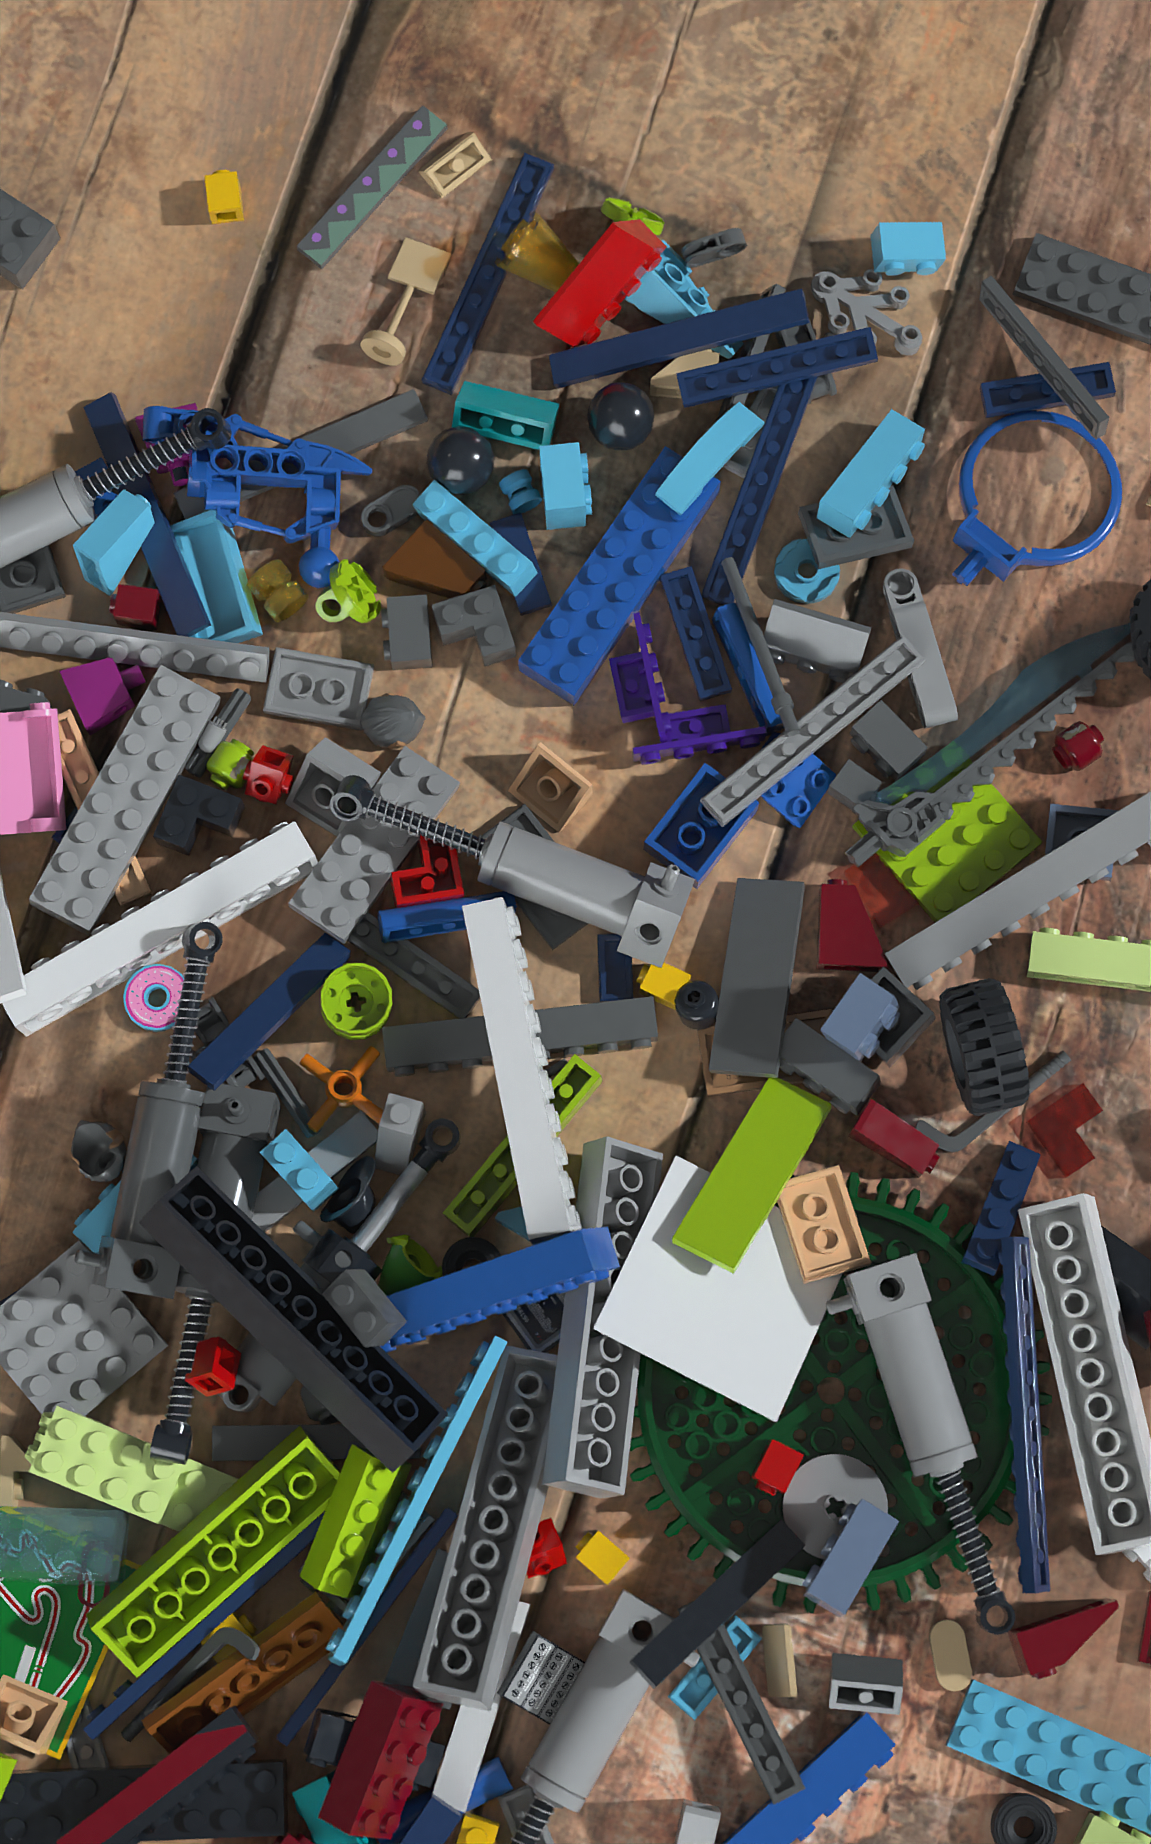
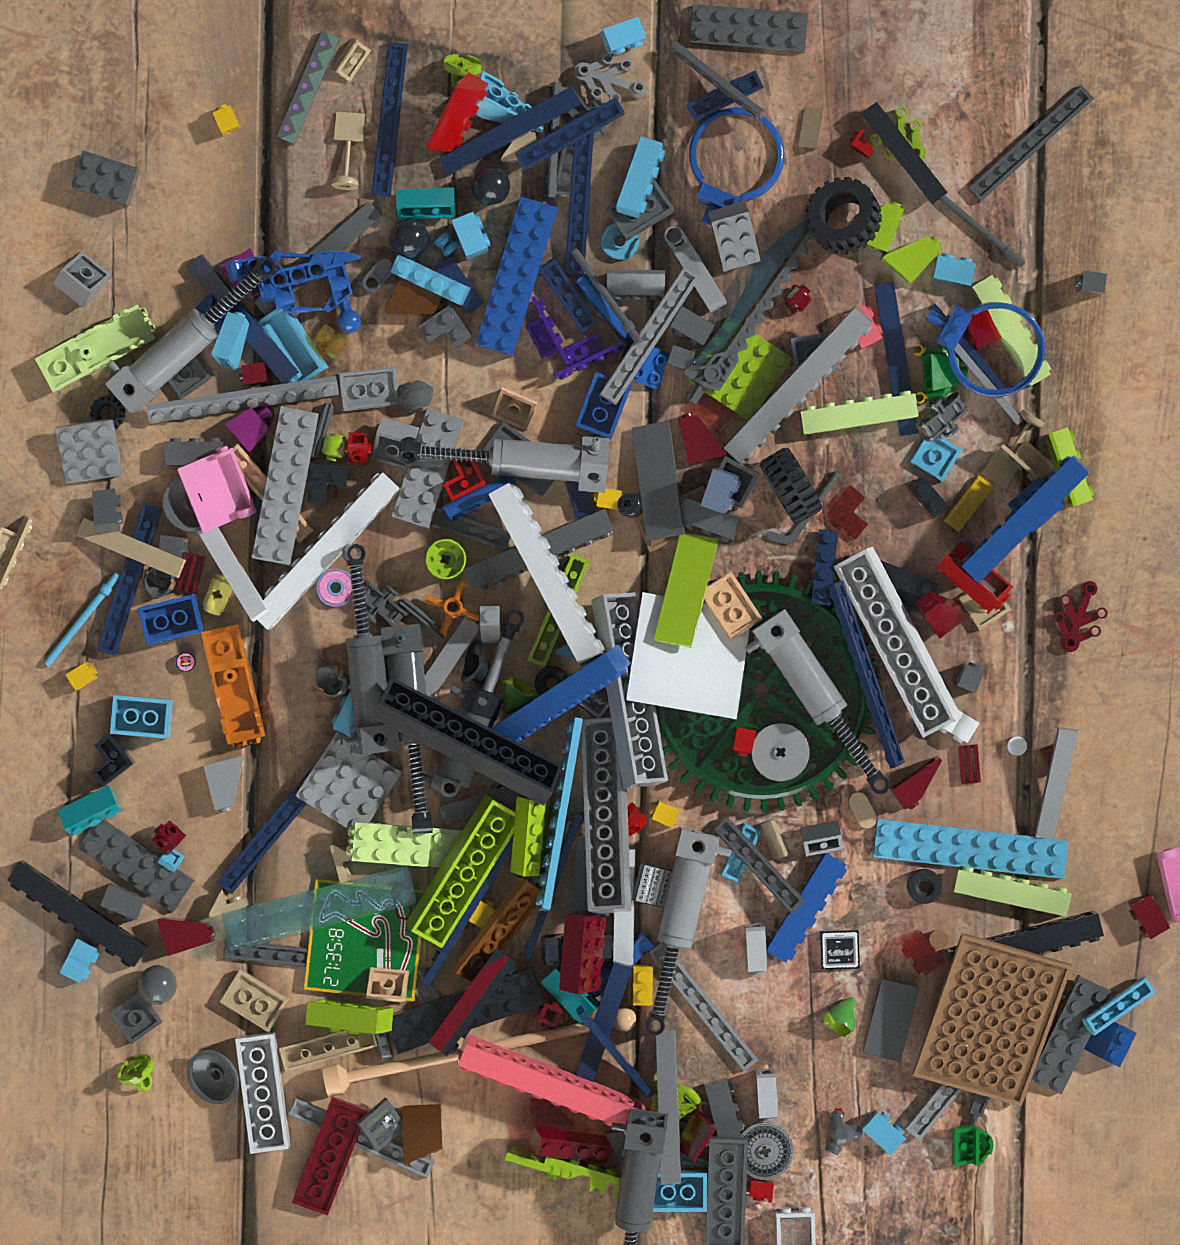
camera: 20 degrees left, 10 degrees up
(212, 735) = (320, 434): light grey piece -> none
(214, 1366) = (432, 777): red brick -> none
(217, 1641) = (479, 915): dark grey piece -> none
(268, 1012) = (400, 578): dark blue tile -> none
(299, 1170) = (444, 660): medium azure brick -> none
(353, 591) = (372, 330): lime tile -> none
(364, 1307) = (502, 724): dark grey brick -> none
(408, 632) = (409, 343): dark grey brick -> none
(537, 254) = (416, 104): clear yellow cone -> none
(708, 457) = (547, 196): medium azure slope -> none
(714, 247) = (513, 67): dark grey piece -> none
(717, 1604) = (733, 821): black tile -> none
(849, 1557) = (794, 777): sand blue brick -> none
(895, 1140) = (758, 547): dark red slope -> none
(1001, 610) = (734, 236): none -> brick

